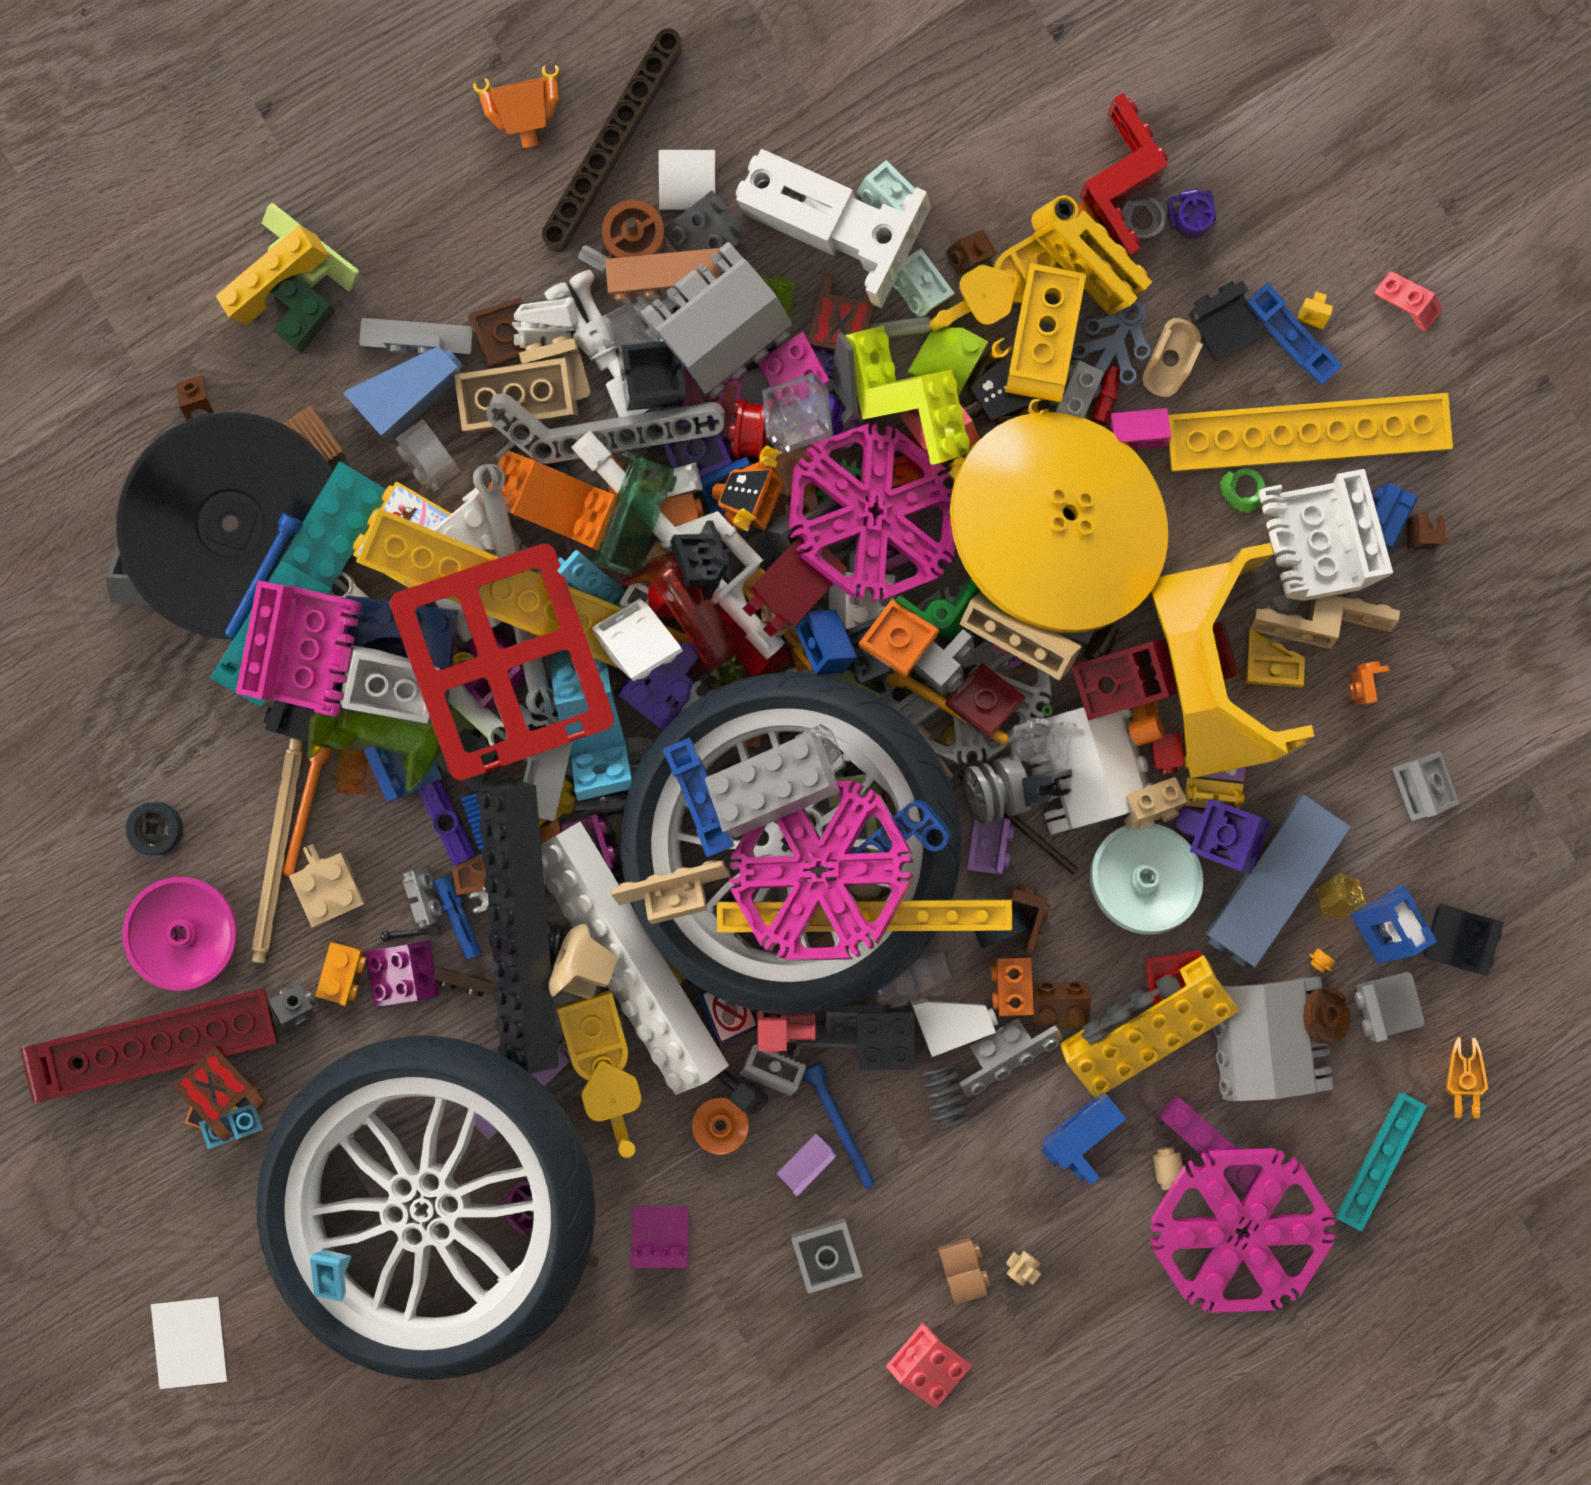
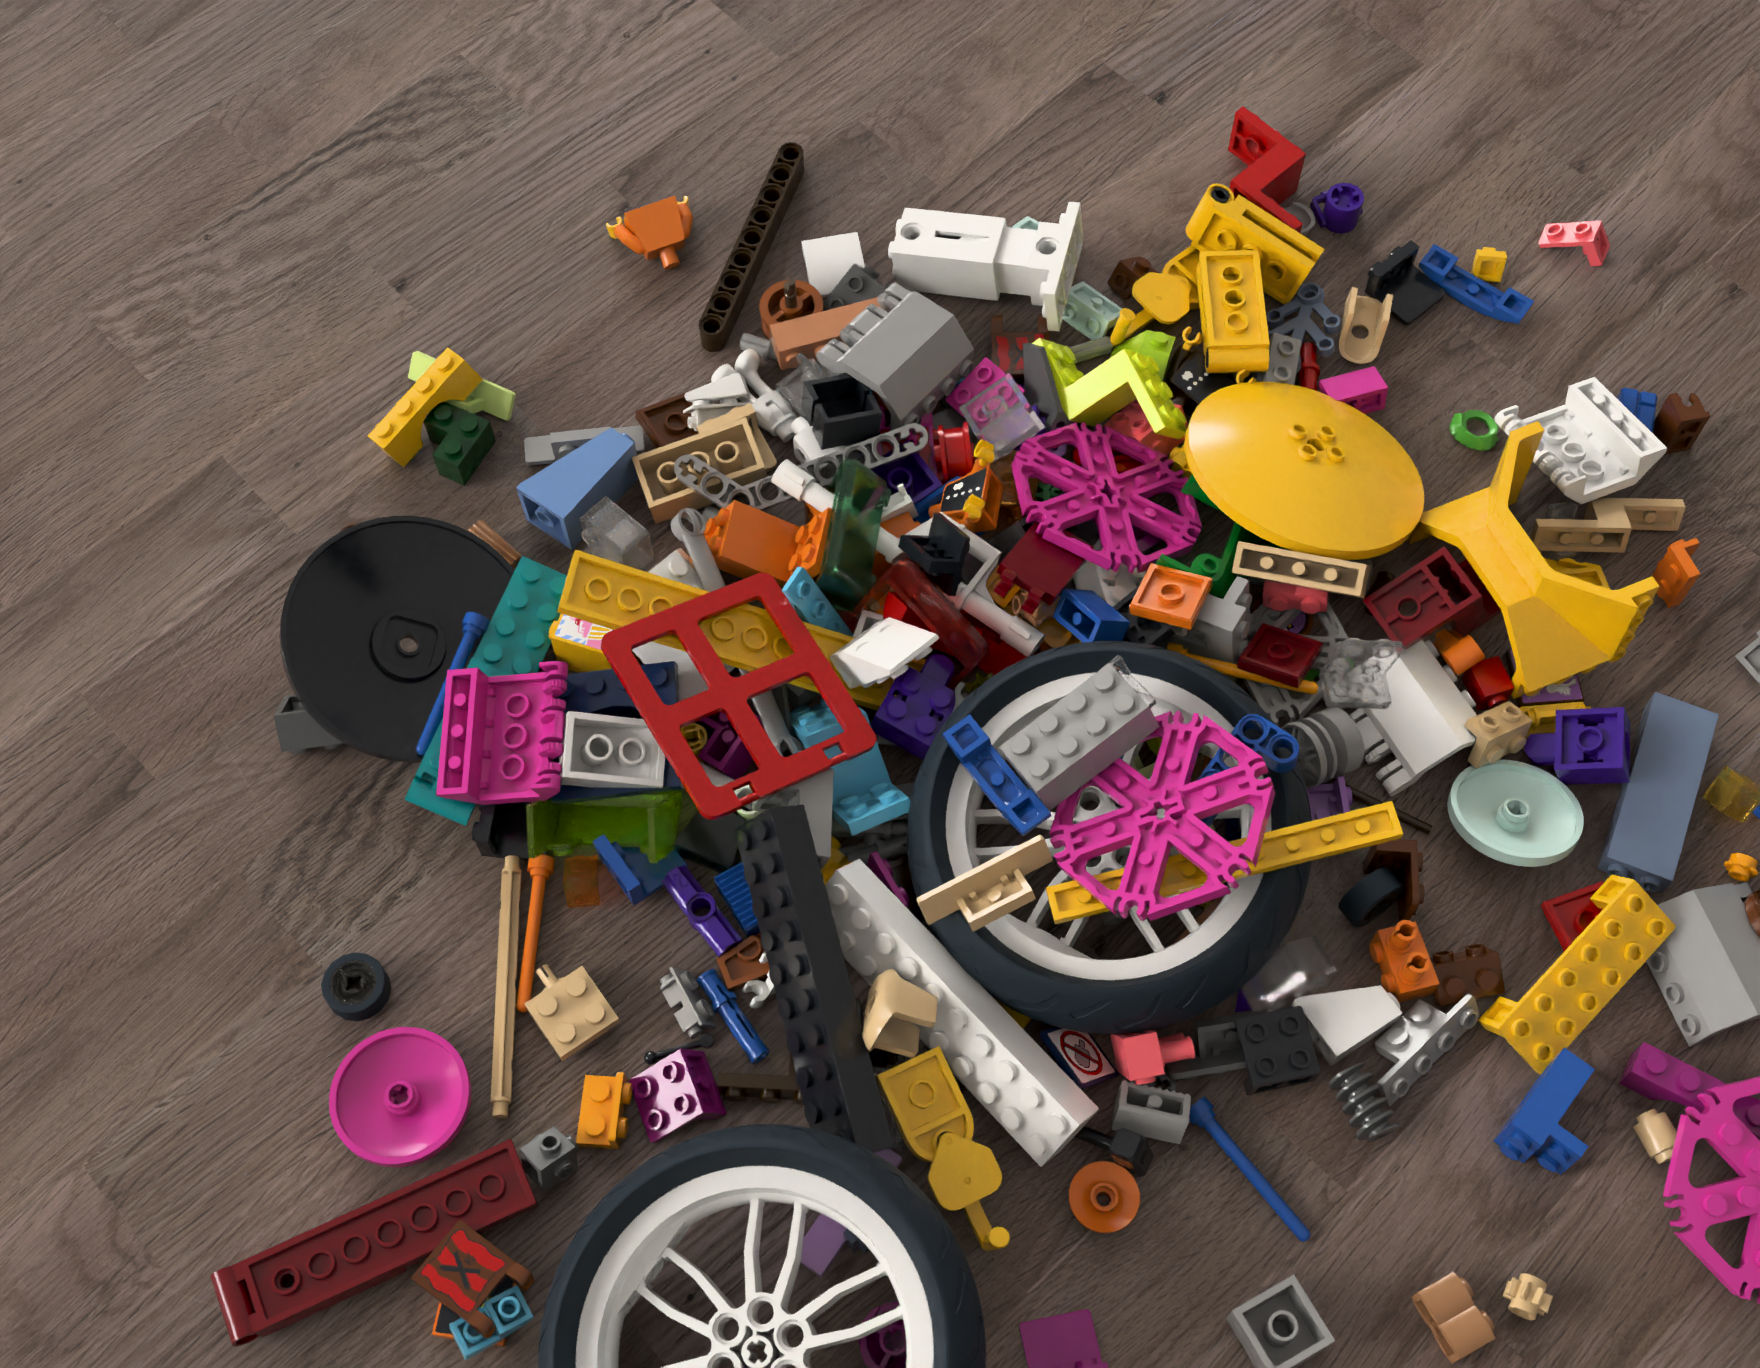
camera: 15 degrees left, 25 degrees down
(806, 1164) = (1220, 1224): lavender panel -> none
(1044, 786) = (1371, 721): black hinge -> none
(1138, 999) = (1520, 979): dark grey plant -> none
(1310, 432) = (1523, 366): yellow plate -> none

